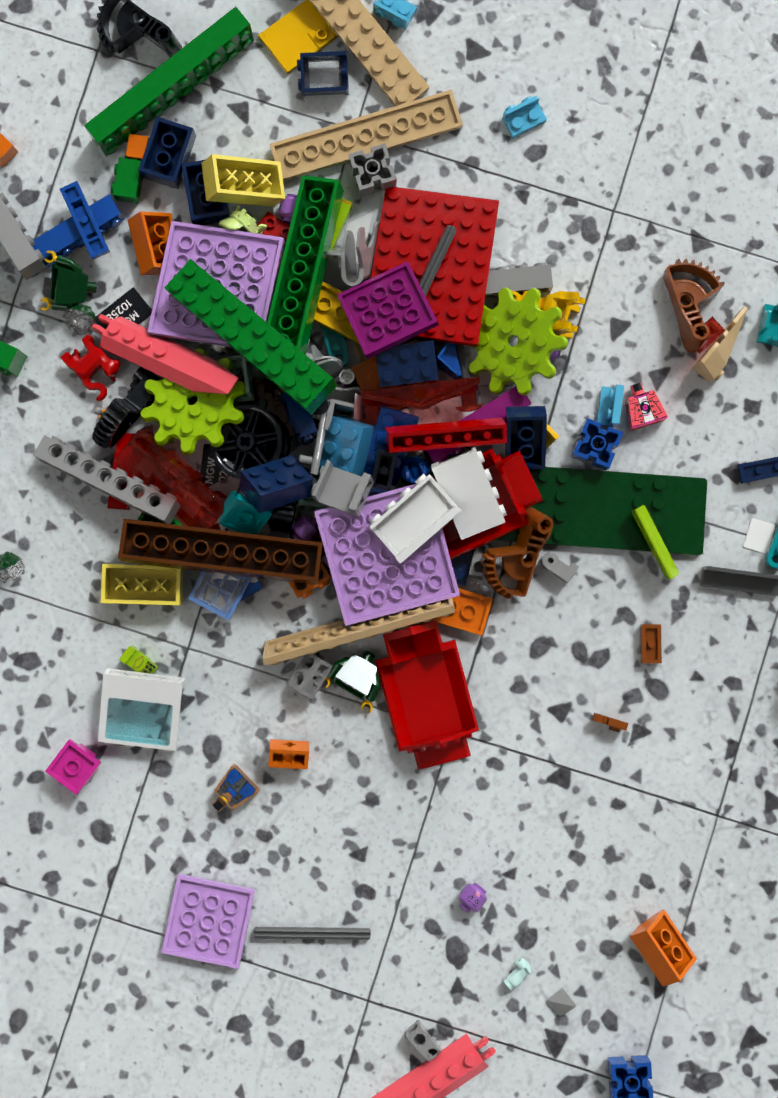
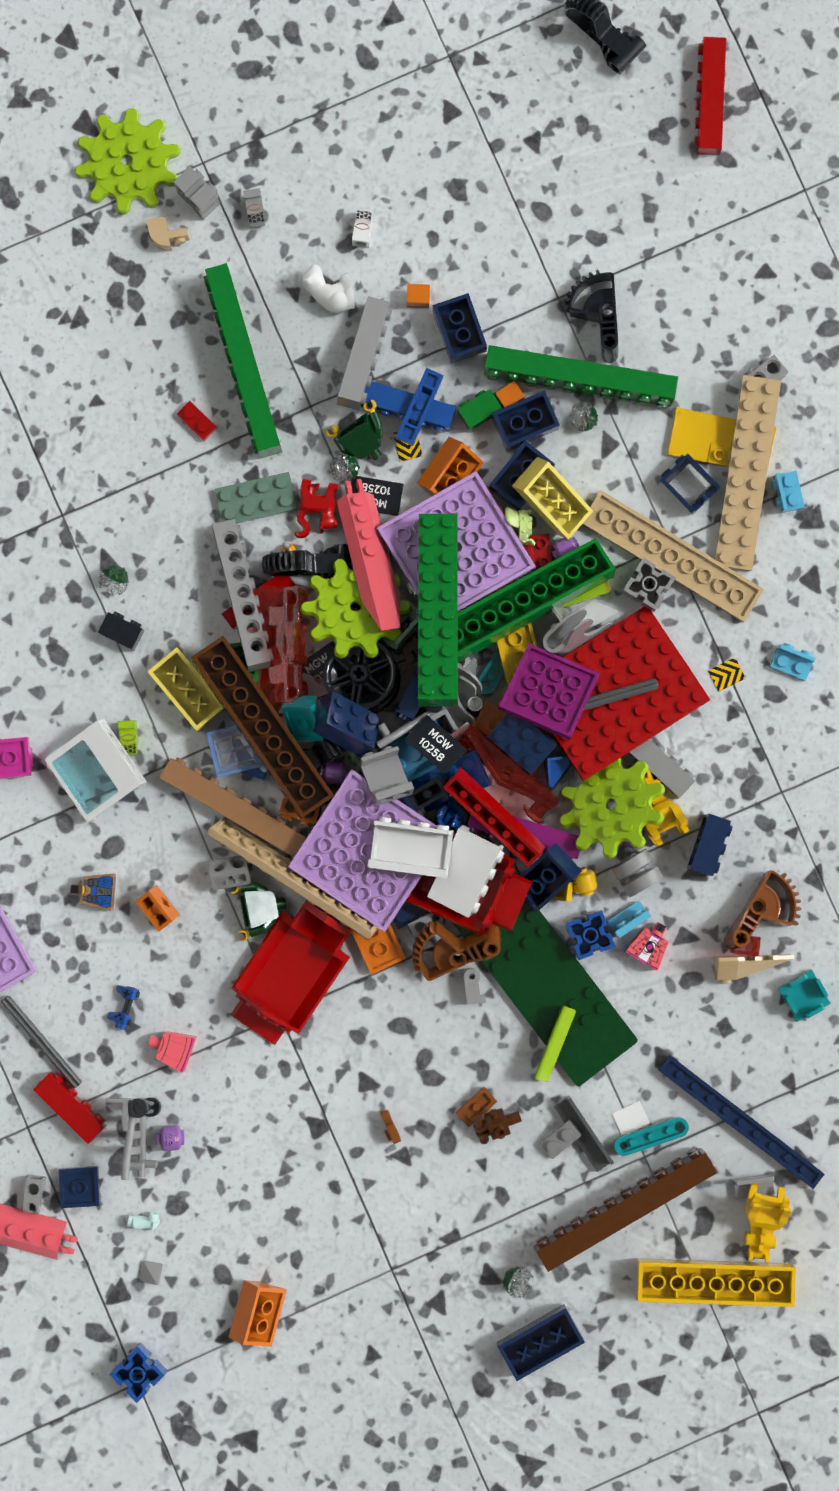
camera: 55 degrees right, 0 degrees up
(45, 405) = (256, 498): none -> sand green plate
(52, 596) = (121, 631): none -> black brick
(53, 140) = (459, 328): none -> dark blue brick
(109, 262) = (407, 451): none -> sticker
(202, 107) = (583, 416): none -> clear piece
(262, 629) = (232, 807): none -> medium nougat brick
(349, 855) = (123, 1018): none -> blue piece
(351, 429) = (435, 744): none -> black sticker
(381, 954) = (70, 1107): none -> red brick
(406, 836) = (173, 1049): none -> coral torso
(429, 910) = (134, 1112): none -> light grey hand
(448, 1001) = (79, 1187): none -> dark blue plate
(490, 174) = (726, 674): none -> sticker
(555, 414) = (585, 882): none -> yellow head
(576, 366) = (634, 868): none -> light grey wheel
(607, 295) = (709, 845): none -> dark blue brick
(677, 641) = (494, 1124): none -> reddish brown piece
(730, 601) = (561, 1139): none -> light grey plate

